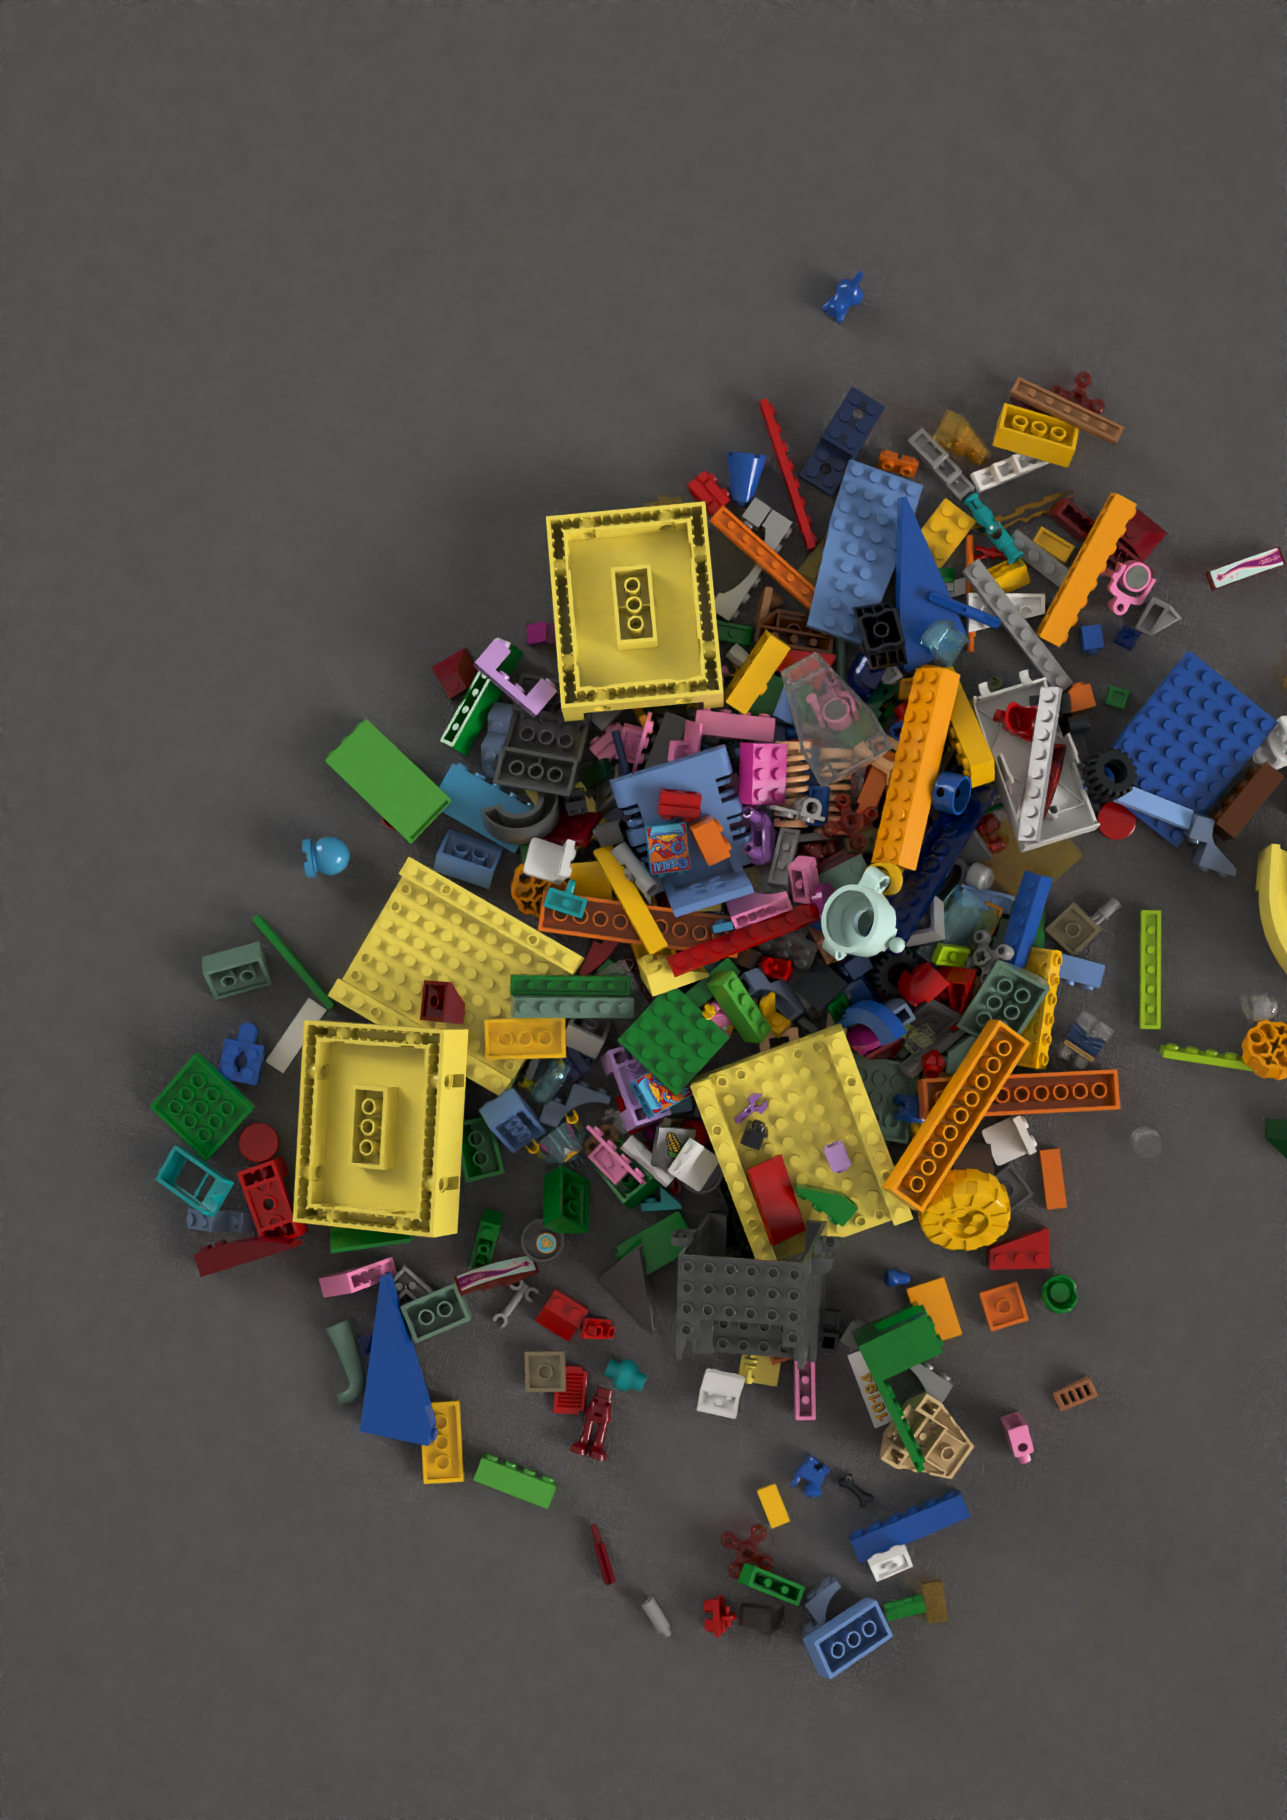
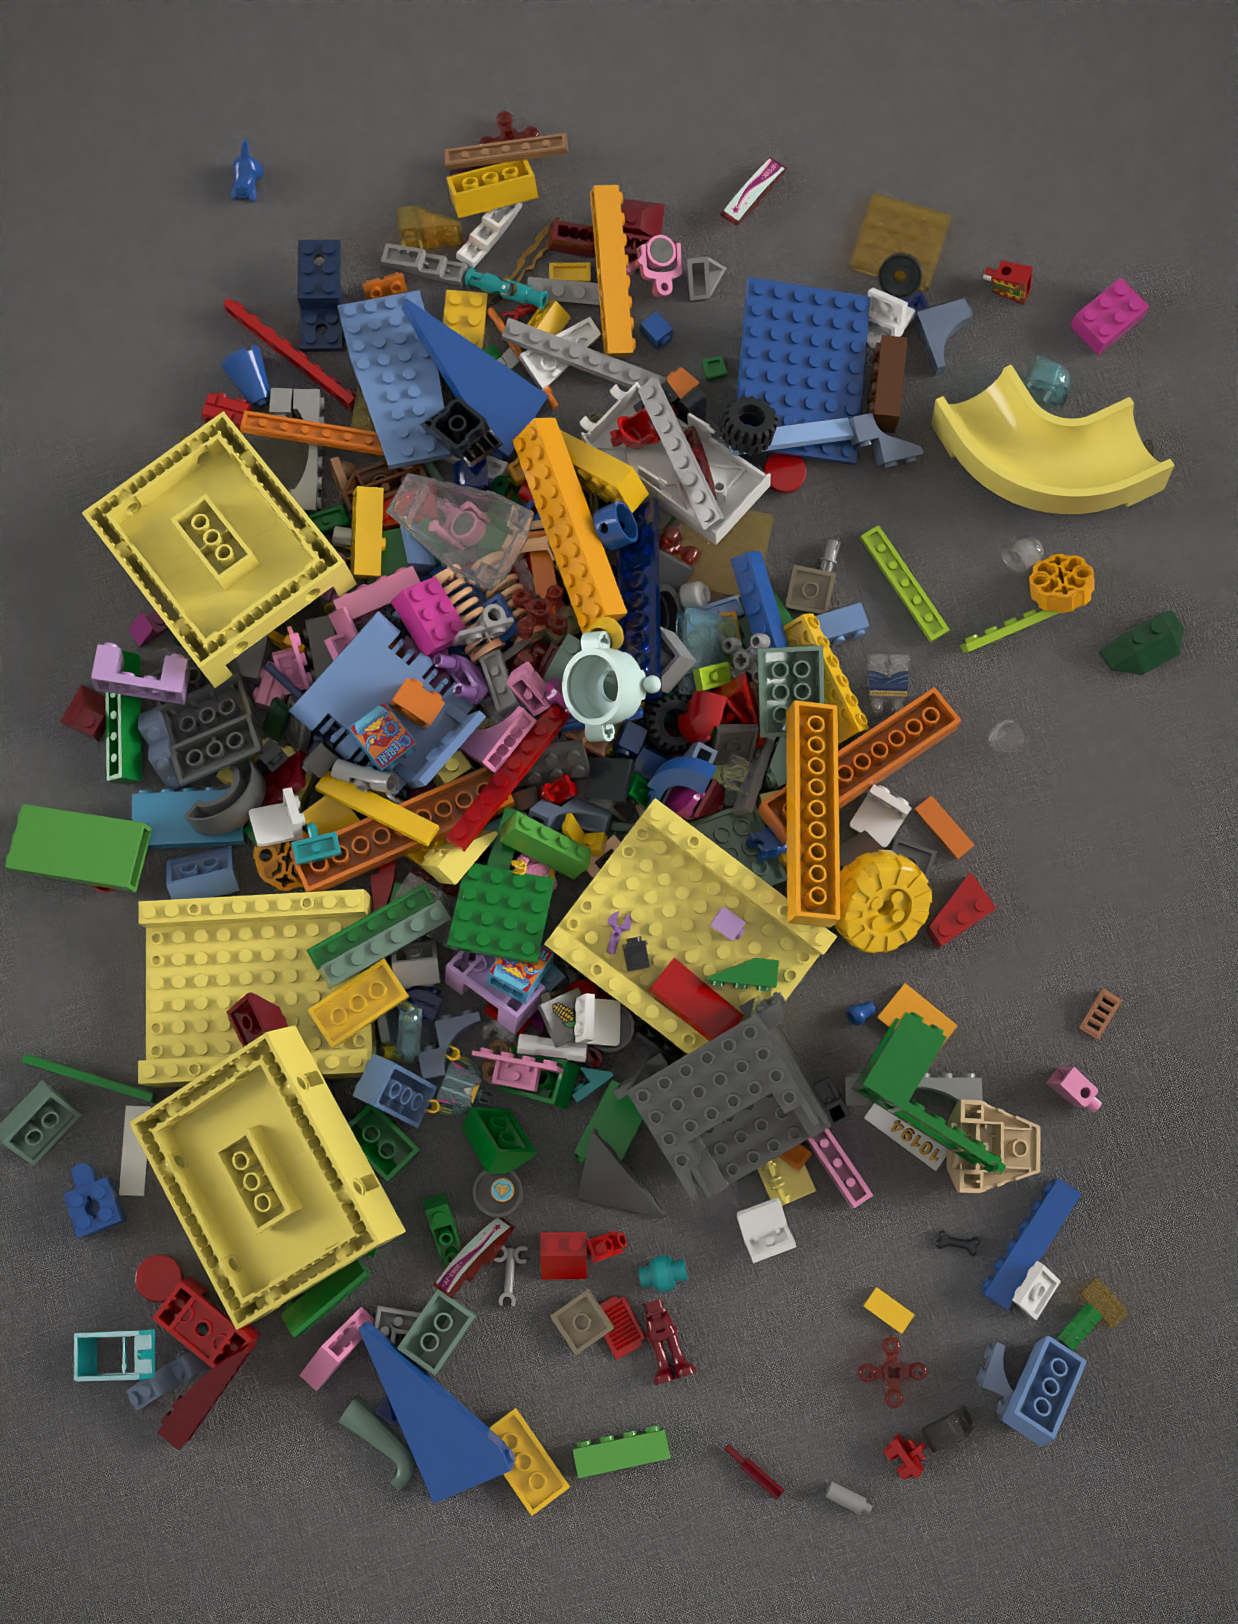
camera: 30 degrees left, 10 degrees down
(202, 1106) = (79, 1276): green plate -> none
(327, 856) = (60, 955): dark azure tile -> none
(679, 804) = (367, 688): red brick -> none
(721, 925) = (480, 779): dark azure plate -> none
(771, 1584) = (936, 1387): green brick -> none
(813, 1475) = (905, 1254): blue animal -> none
(933, 1064) = (761, 785): red rock -> none
(944, 641) = (522, 403): clear light blue brick -> none
(964, 610) = (524, 369): blue axle -> none
(1003, 1306) = (978, 974): orange plate -> none
(1059, 1294) = (1021, 928): green piece -> none
(1127, 637) = (688, 311): clear blue tile -> none

